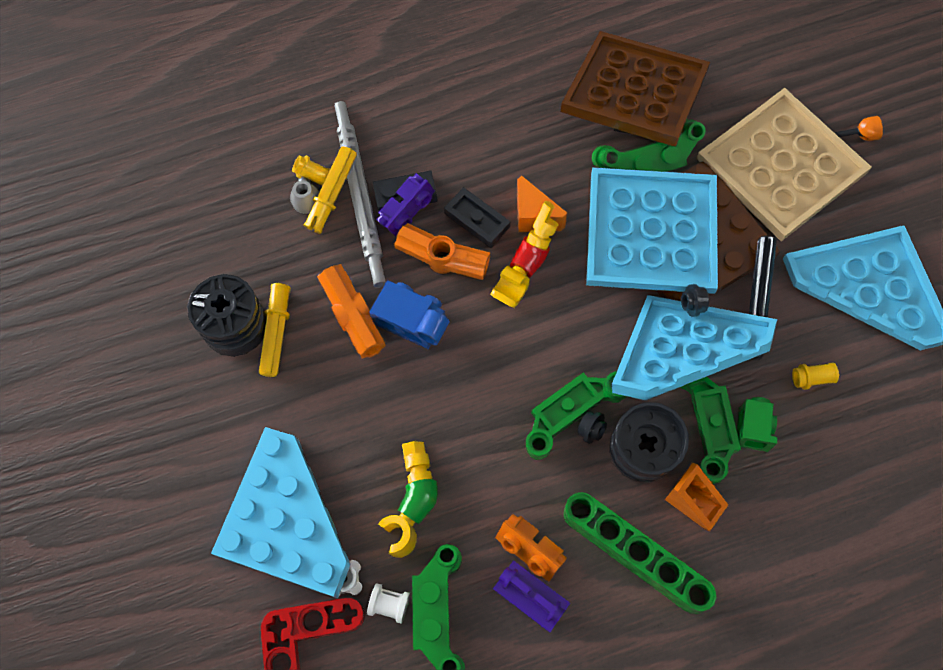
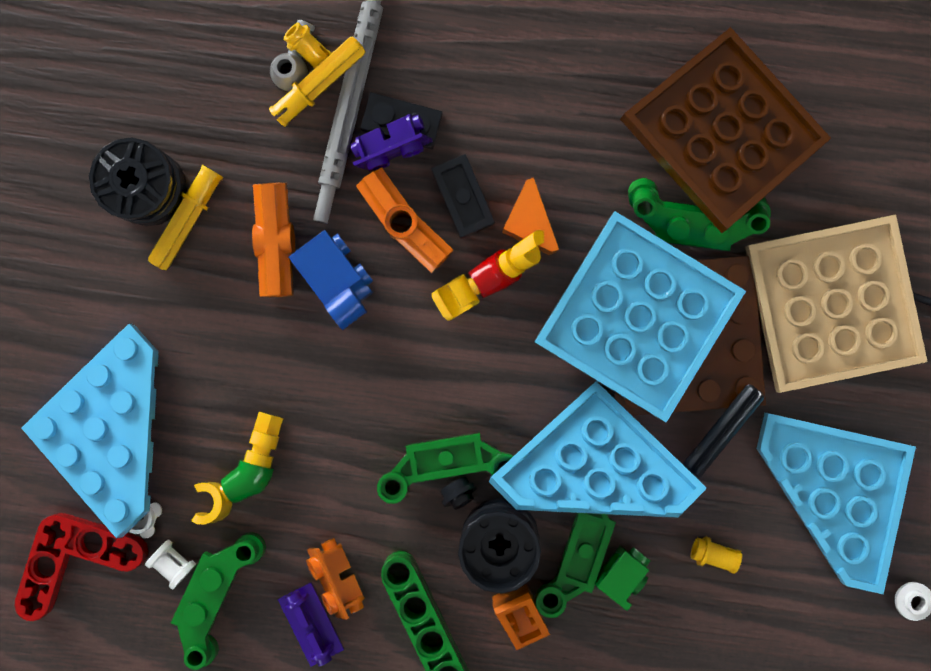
camera: 25 degrees right, 20 degrees up
(695, 300) = (634, 423): black plate -> none

